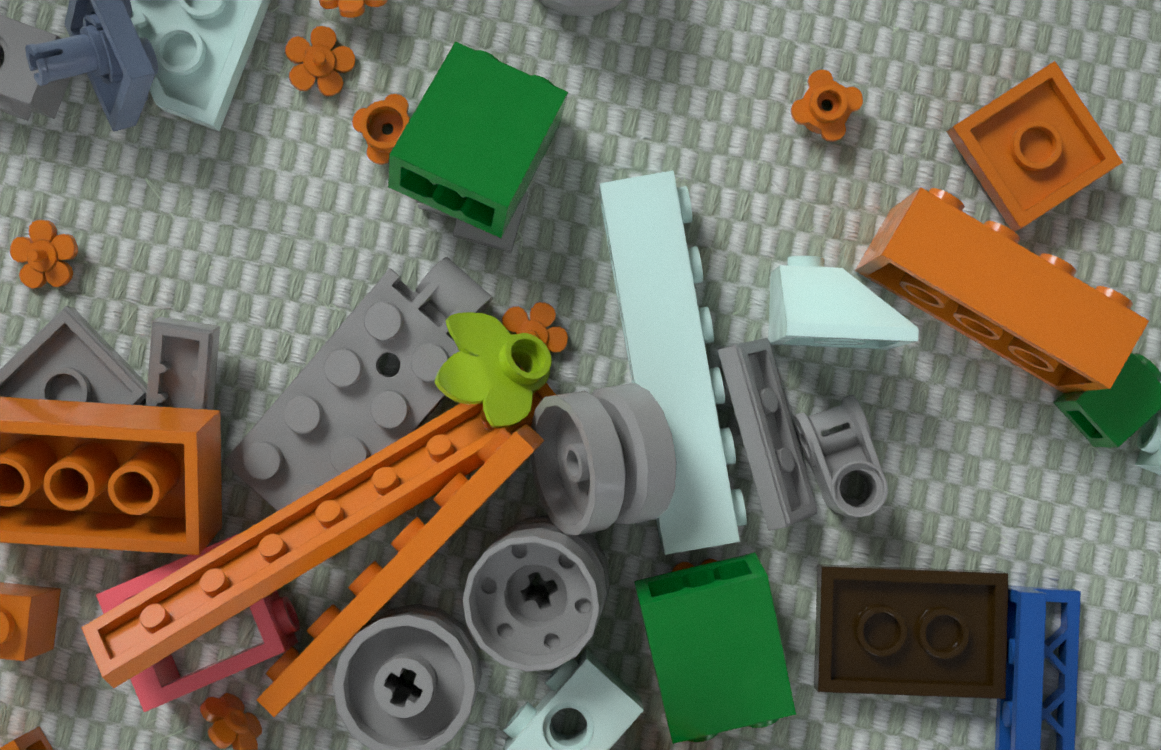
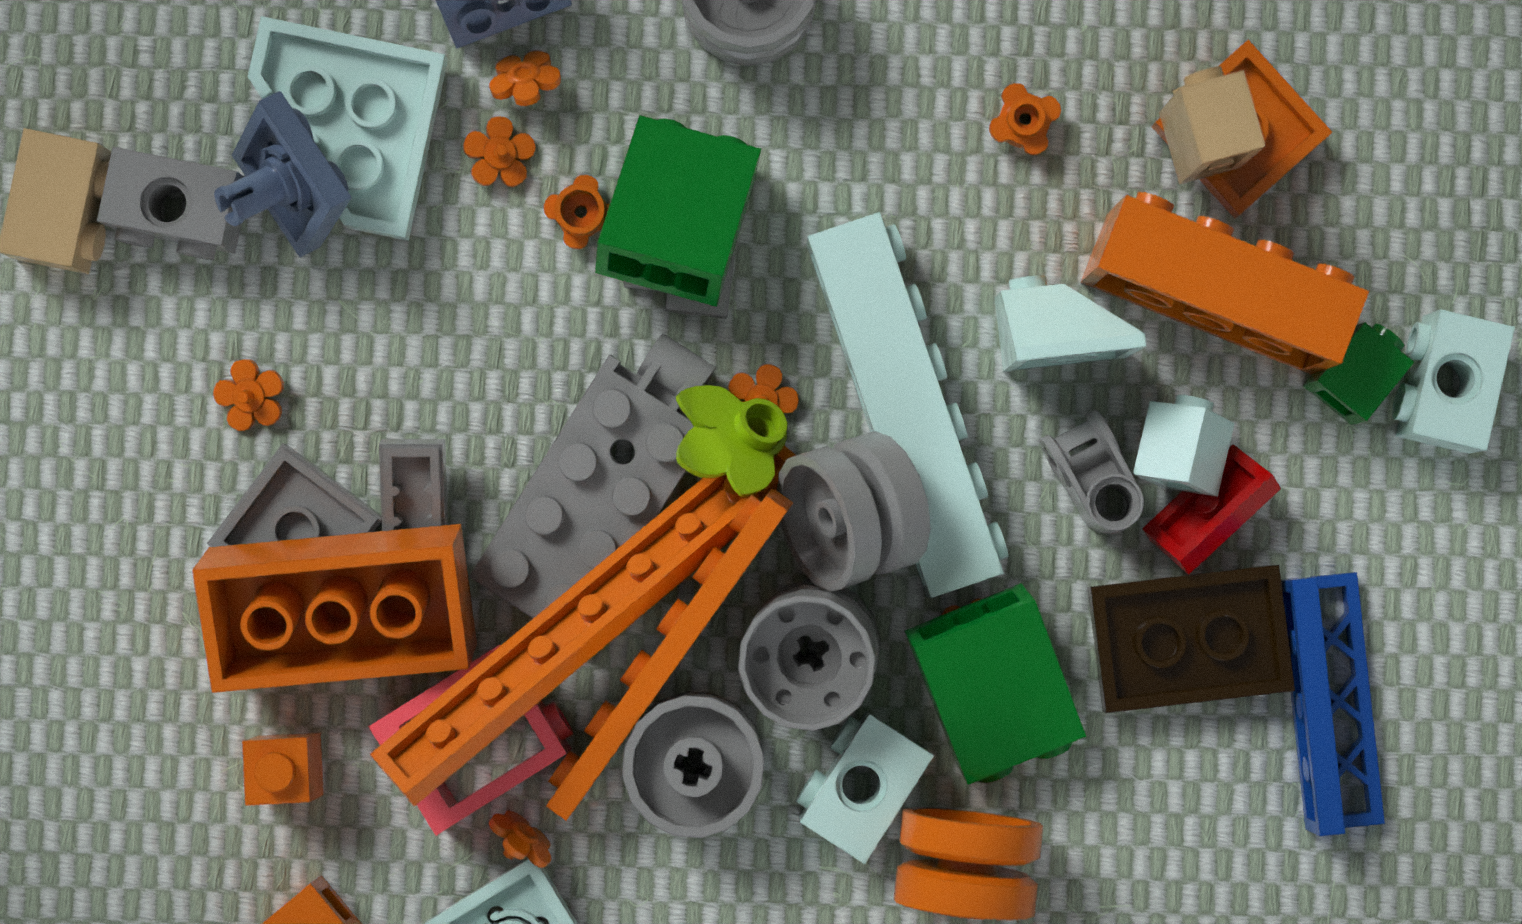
camera: 10 degrees left, 0 degrees up
(768, 433) = (1016, 461): light grey tile -> none
(934, 443) = (1184, 446): none -> light aqua brick
(950, 508) = (1199, 523): none -> red plate
(1015, 132) = (1211, 124): none -> tan brick

